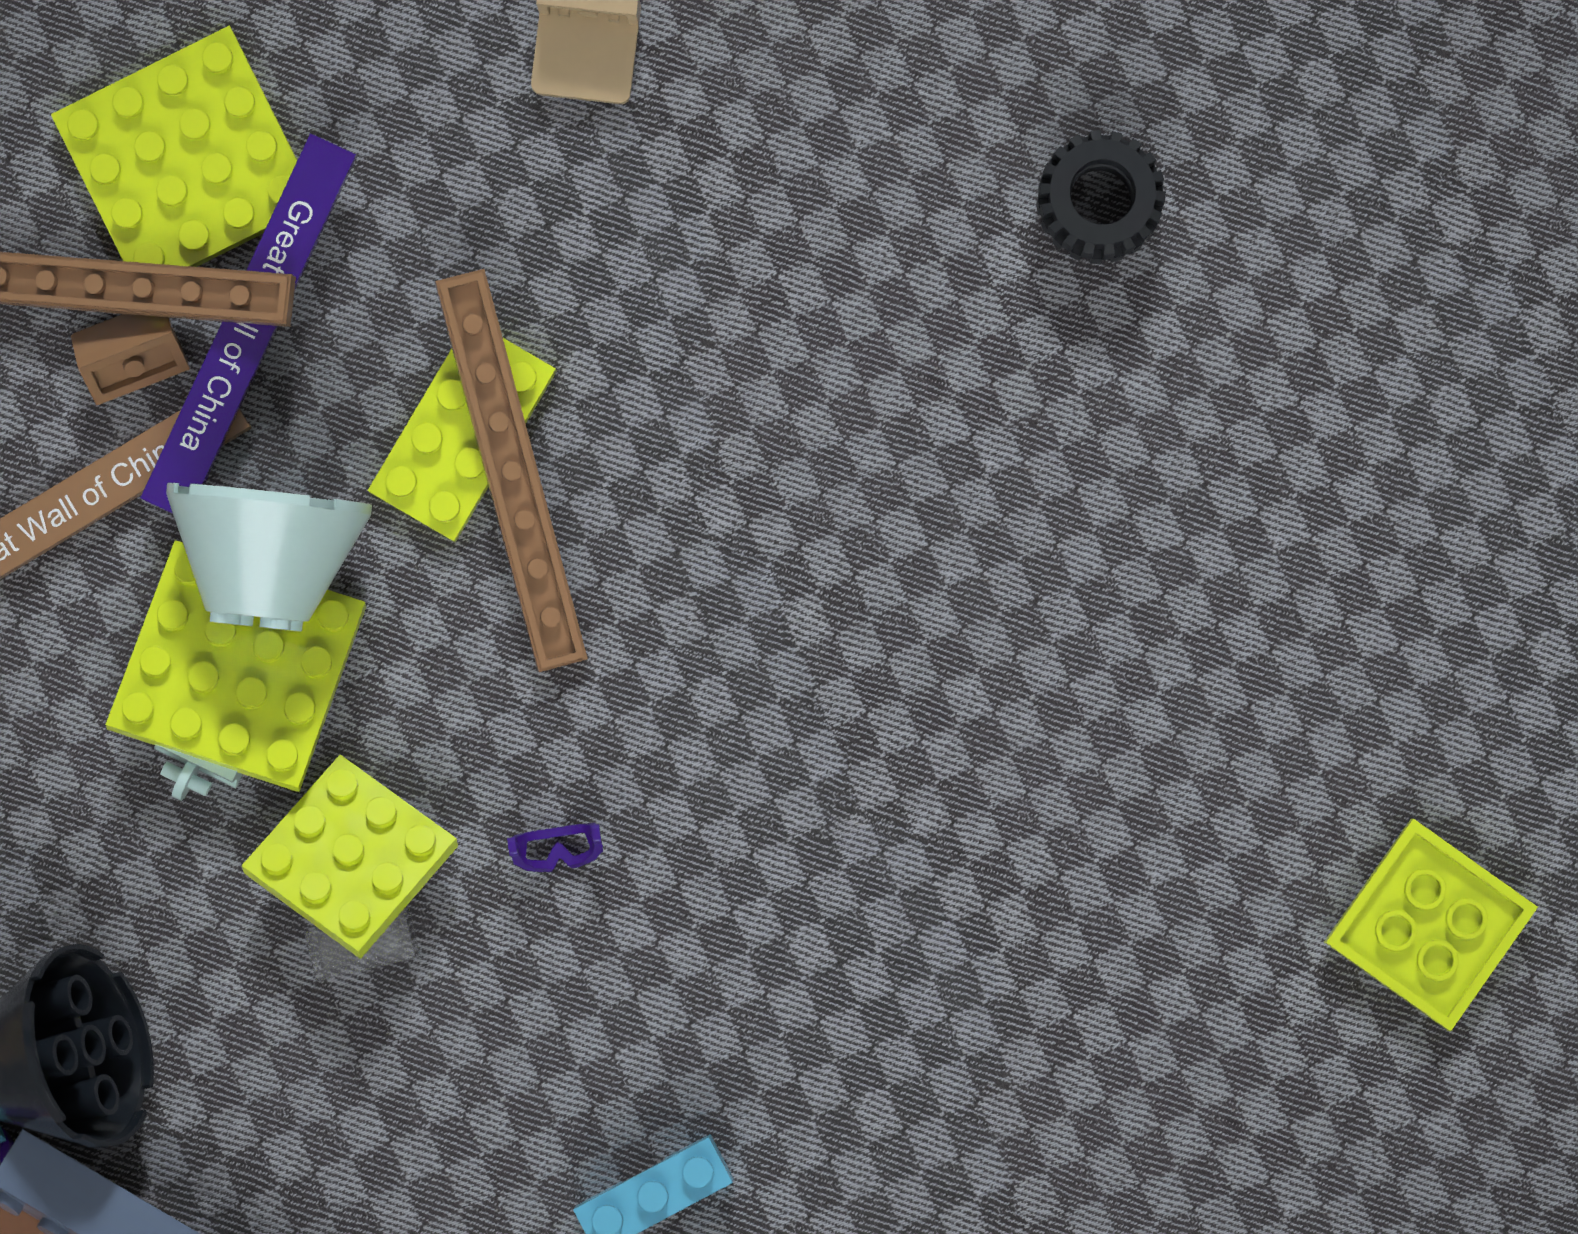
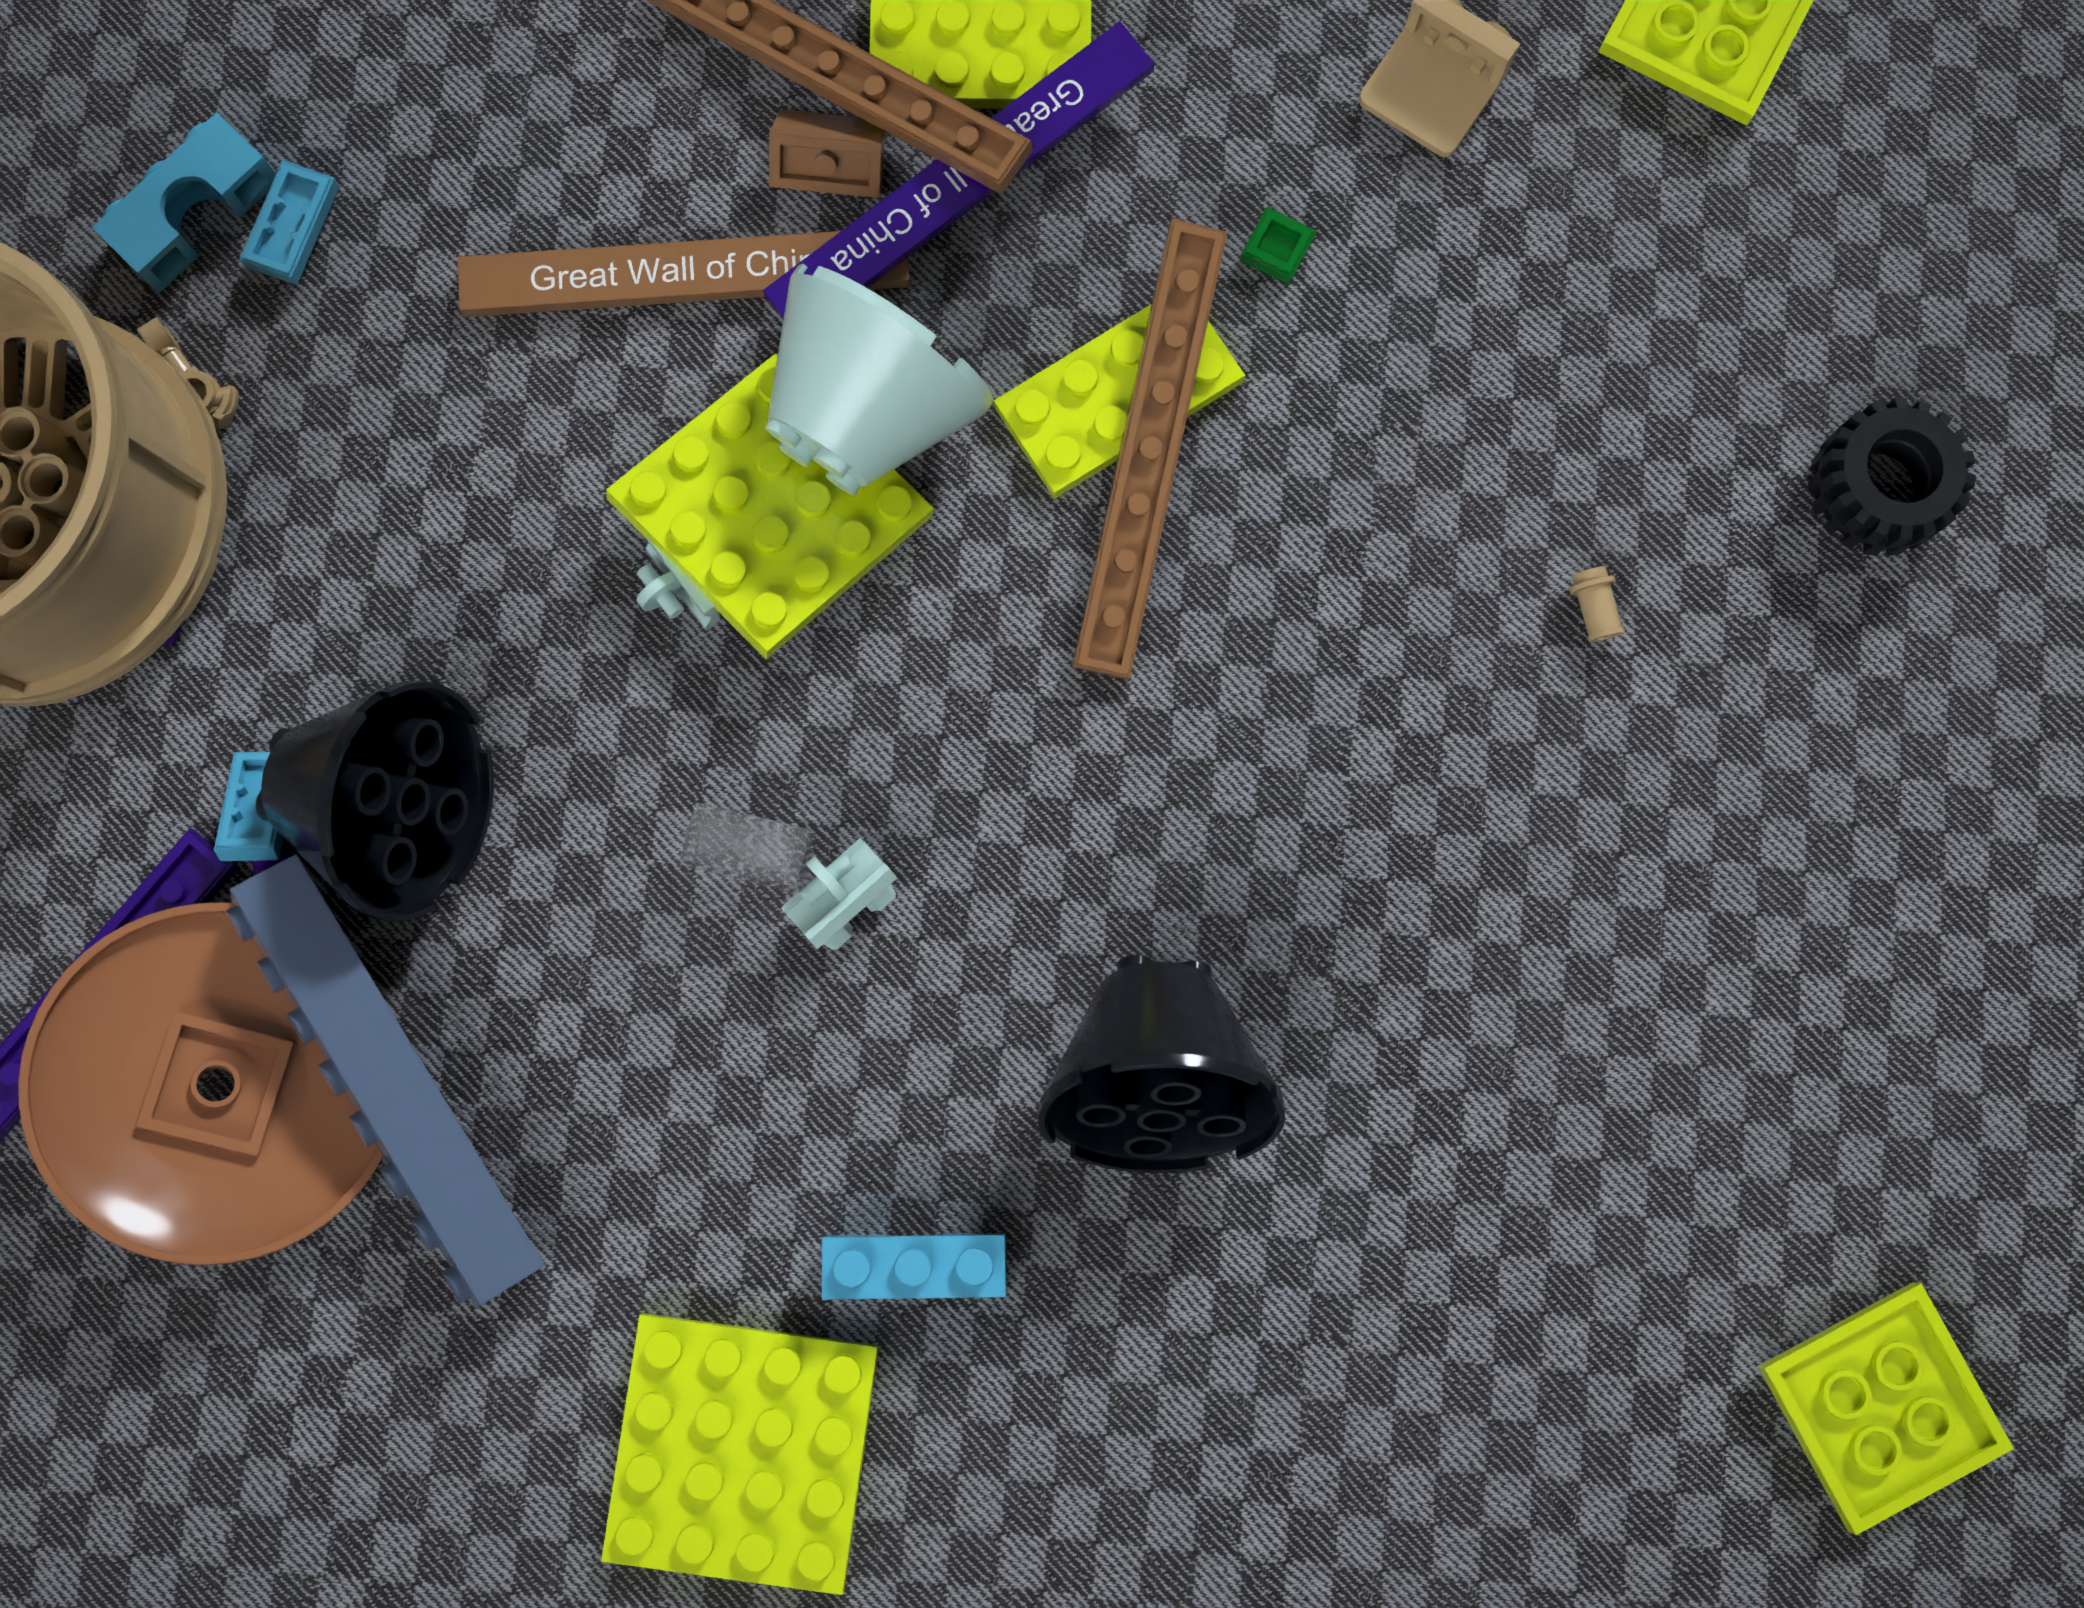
camera: 20 degrees right, 5 degrees down
(350, 856) = (783, 750): neon yellow plate -> none
(450, 944) = (839, 894): none -> light aqua hips
(518, 845) = (962, 828): dark purple helmet -> none
(528, 245) = (1278, 245): none -> green tile
(763, 958) = (1160, 1075): none -> black cone
(922, 412) = (1597, 603): none -> tan pin

